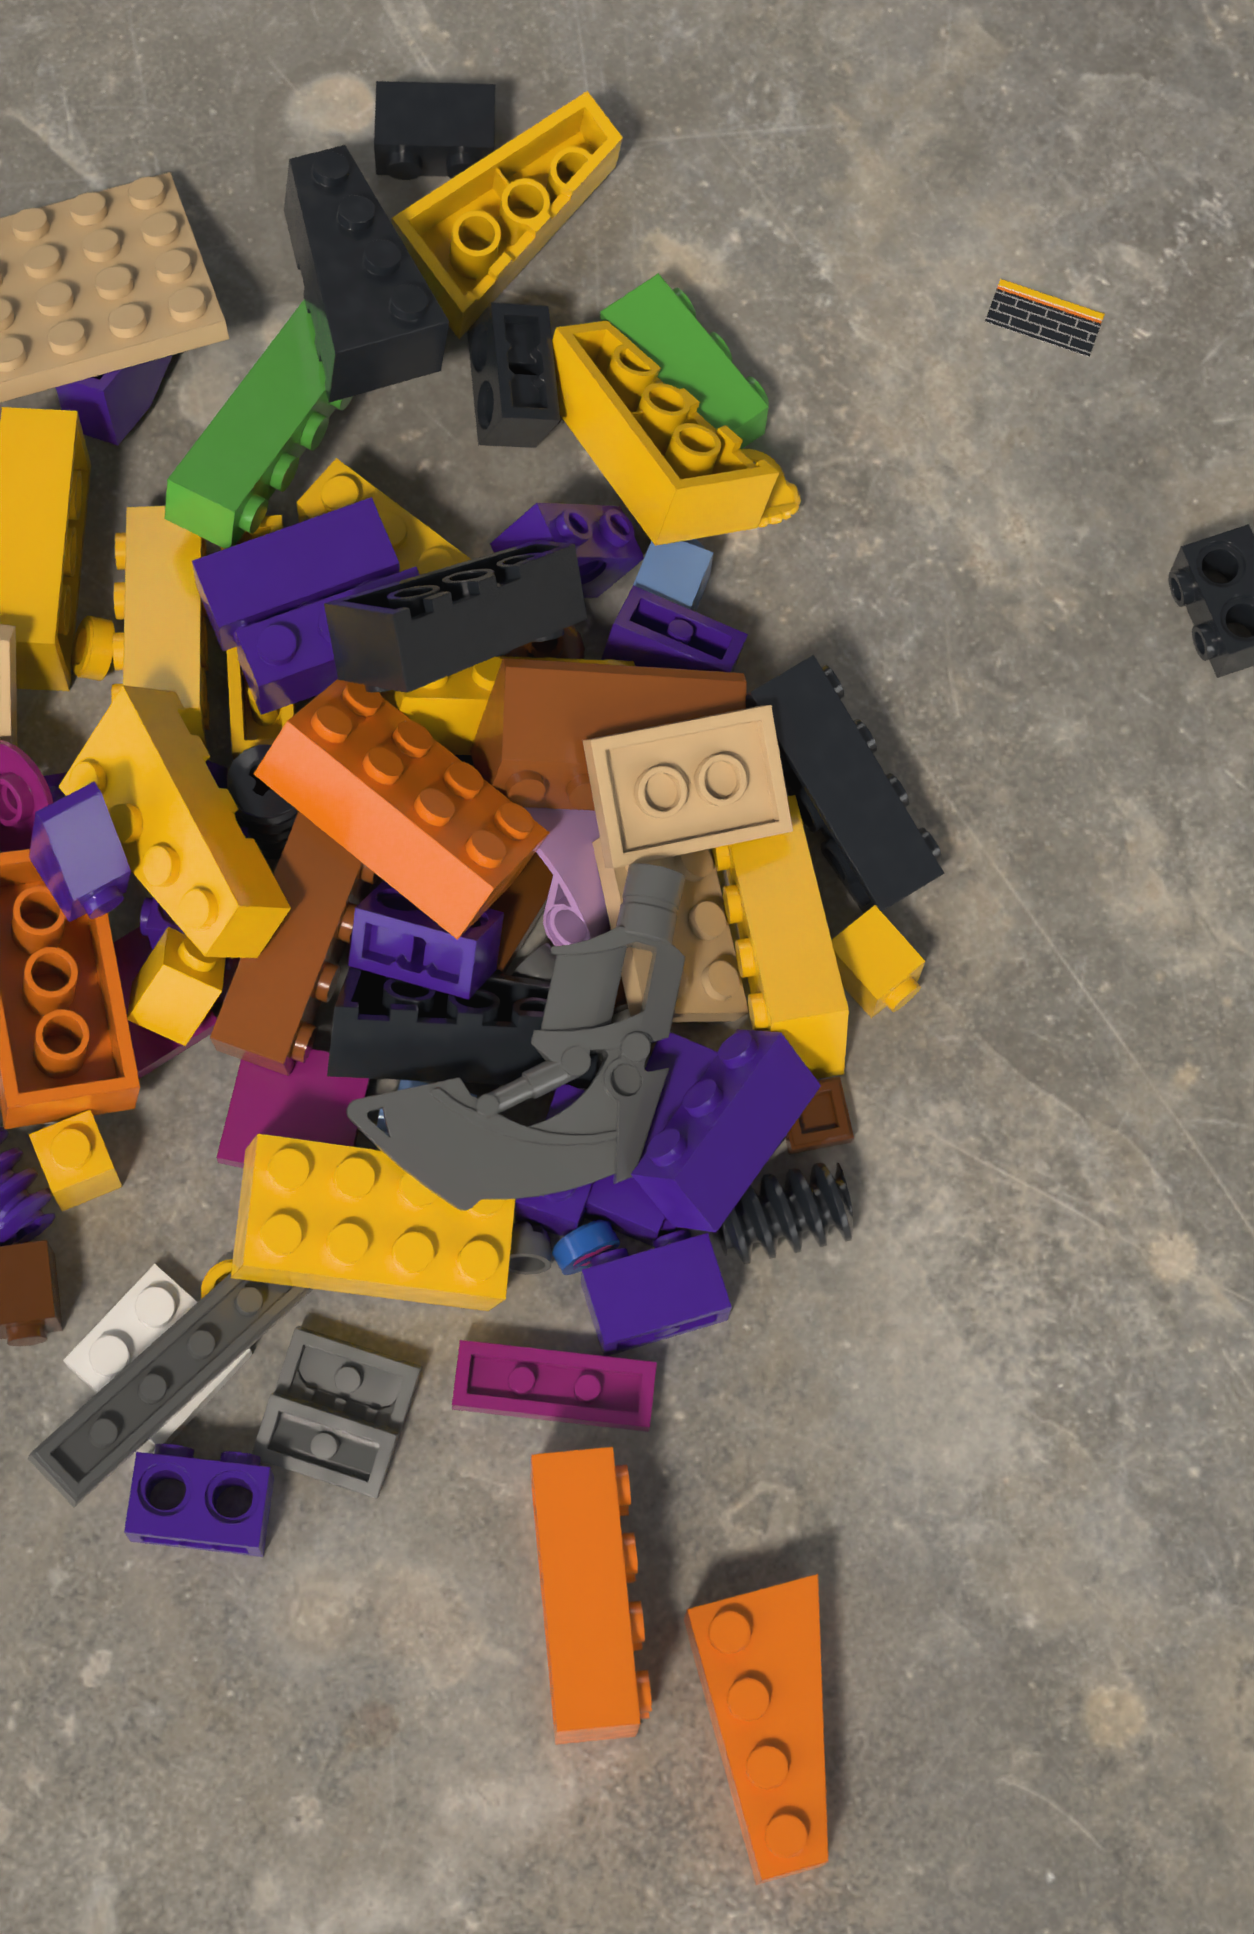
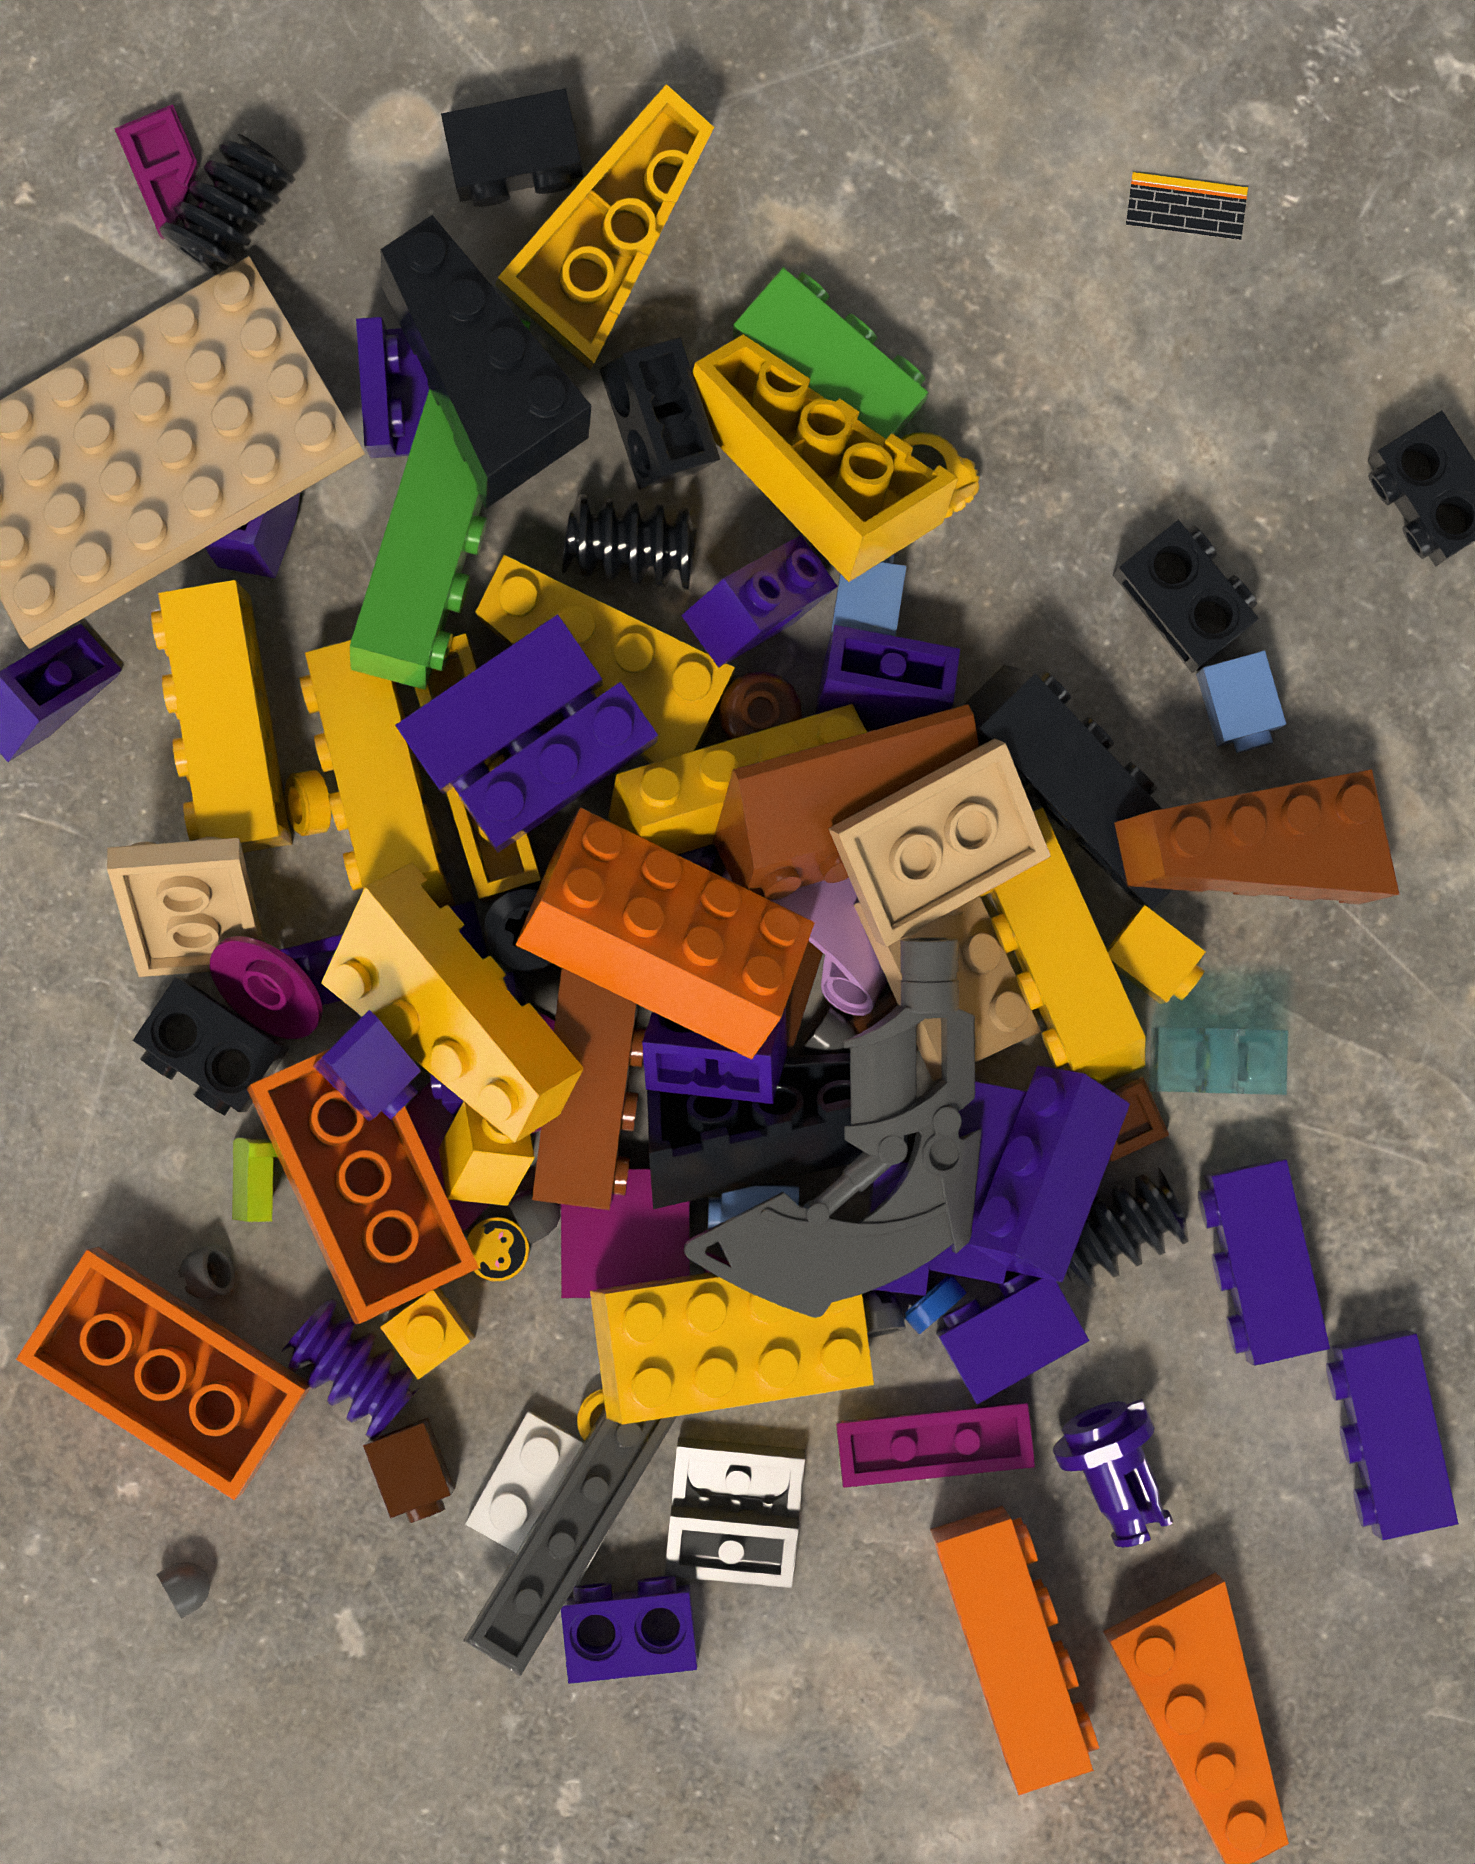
camera: 10 degrees left, 15 degrees up
(111, 84) = (160, 161): none -> magenta tile
(158, 119) = (226, 203): none -> black piece
(167, 1103) = (498, 1248): none -> tile
(212, 1074) = (534, 1217): none -> dark grey hinge
(266, 297) = (390, 387): none -> dark purple bracket
(455, 616) = (677, 740): black wedge -> none
(457, 484) = (630, 542): none -> black piece
(733, 1446) = (1109, 1452): none -> dark purple piece
(917, 1073) = (1218, 1060): none -> clear light blue brick
(922, 1277) = (1263, 1262): none -> dark purple brick
(960, 647) = (1173, 605): none -> black brick
(1004, 865) = (1278, 841): none -> dark orange wedge
(1007, 748) = (1241, 701): none -> medium blue brick
(1018, 1477) = (1392, 1435): none -> dark purple brick

